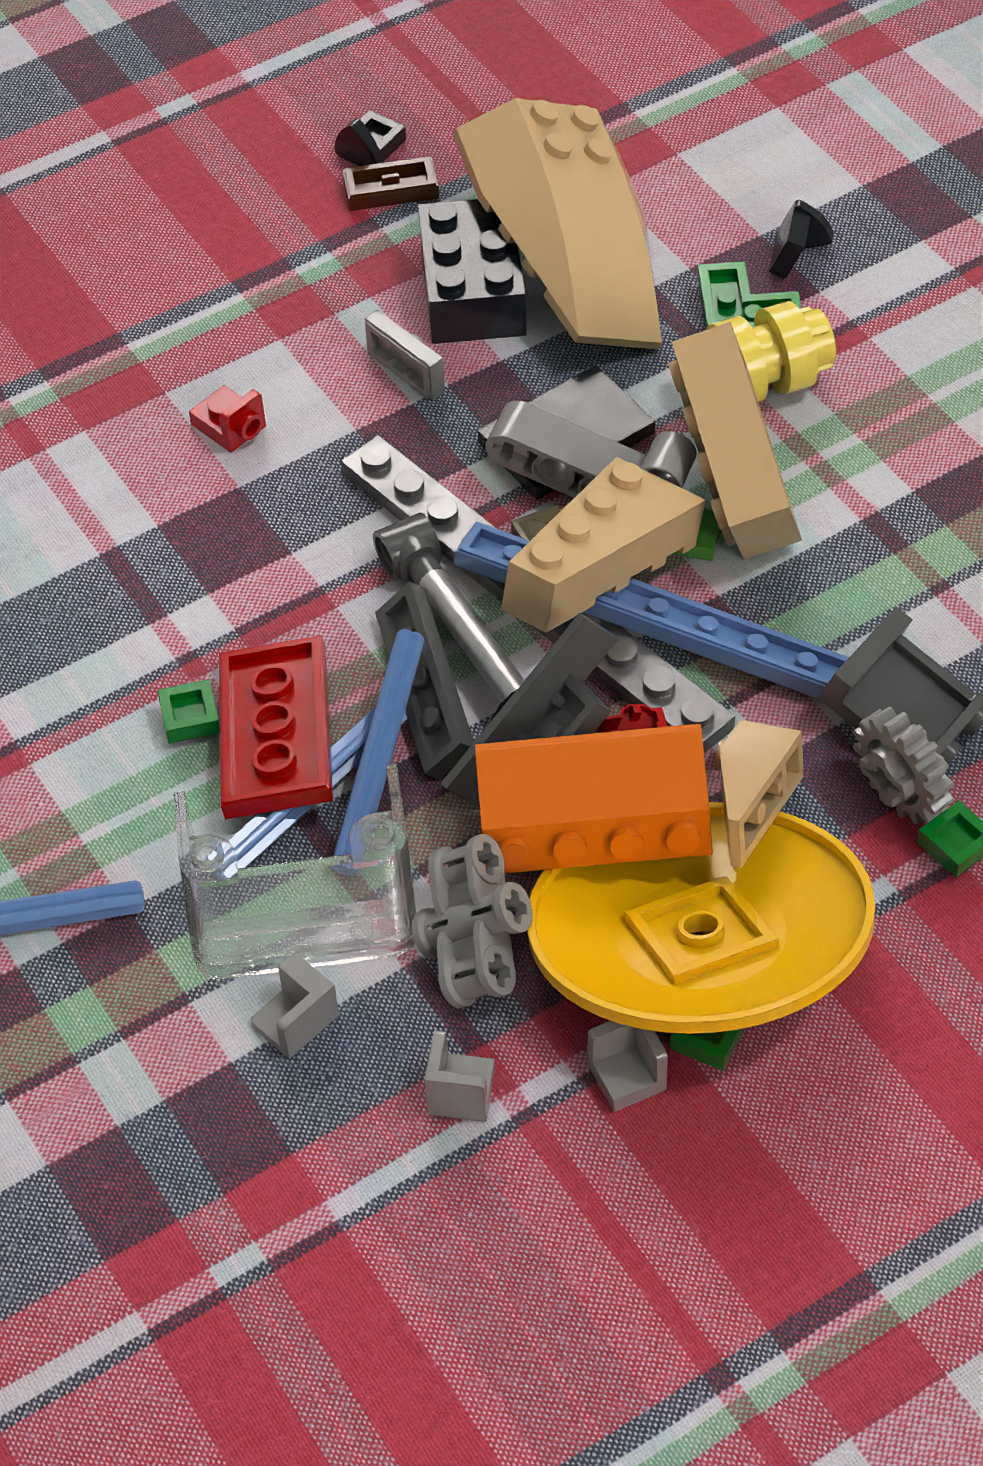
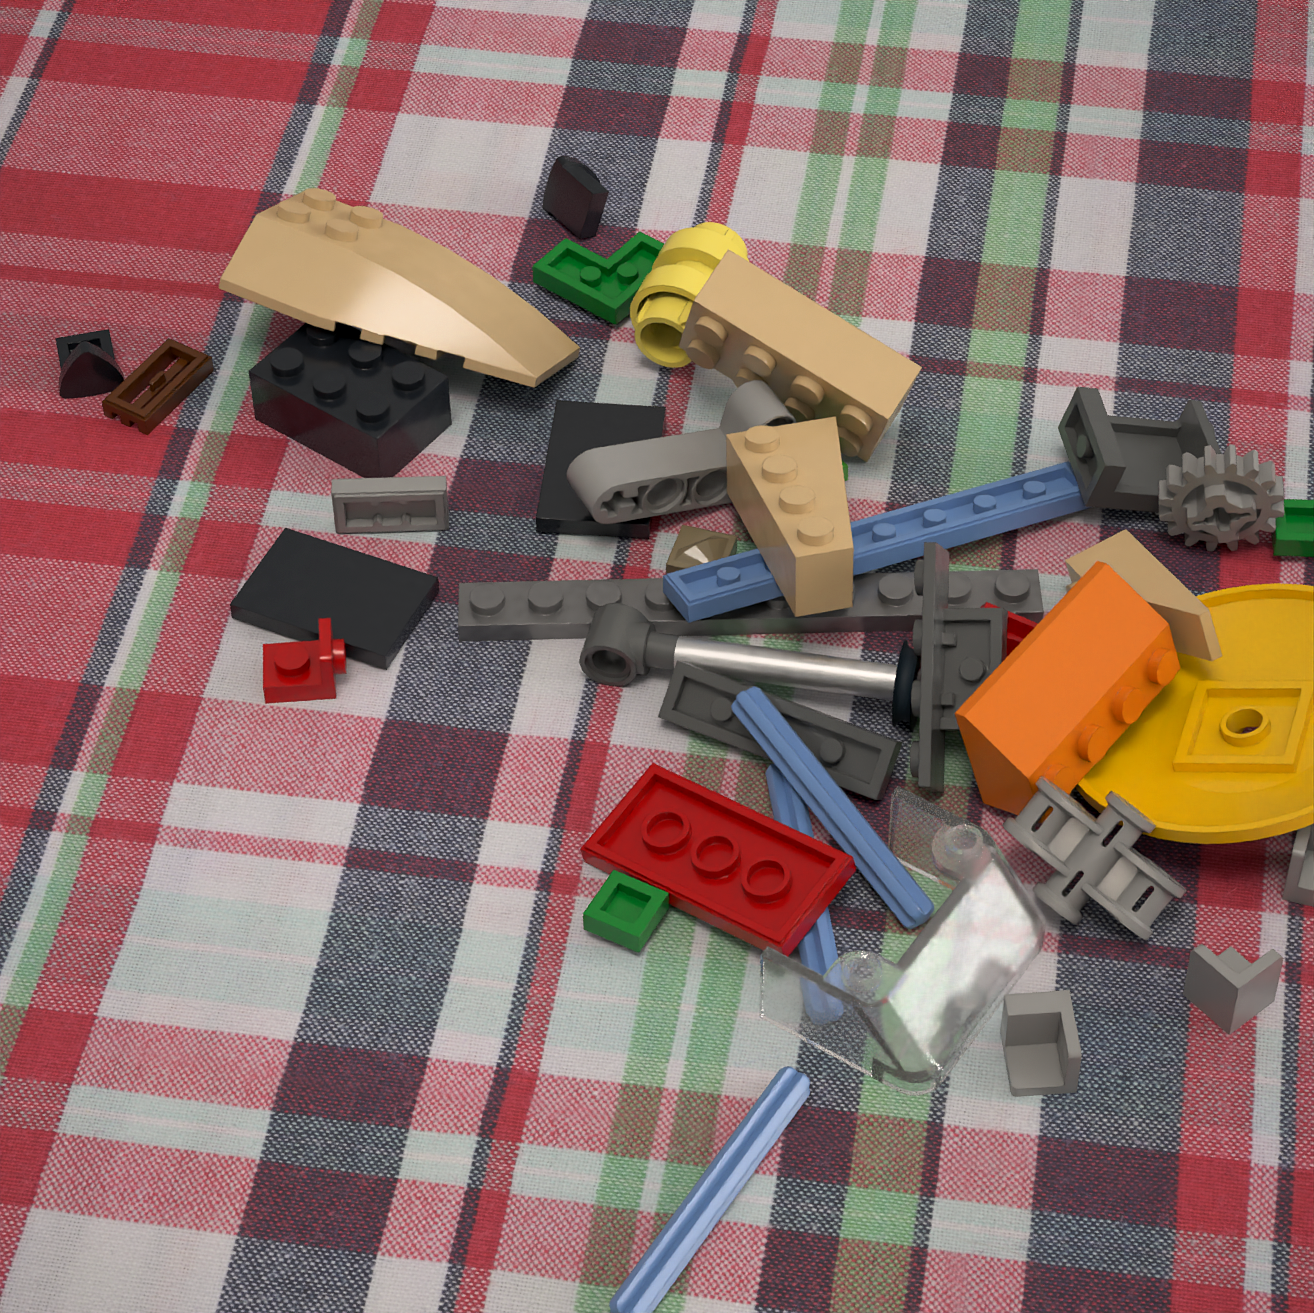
camera: 50 degrees left, 5 degrees down
(306, 390) = (366, 597): none -> black tile

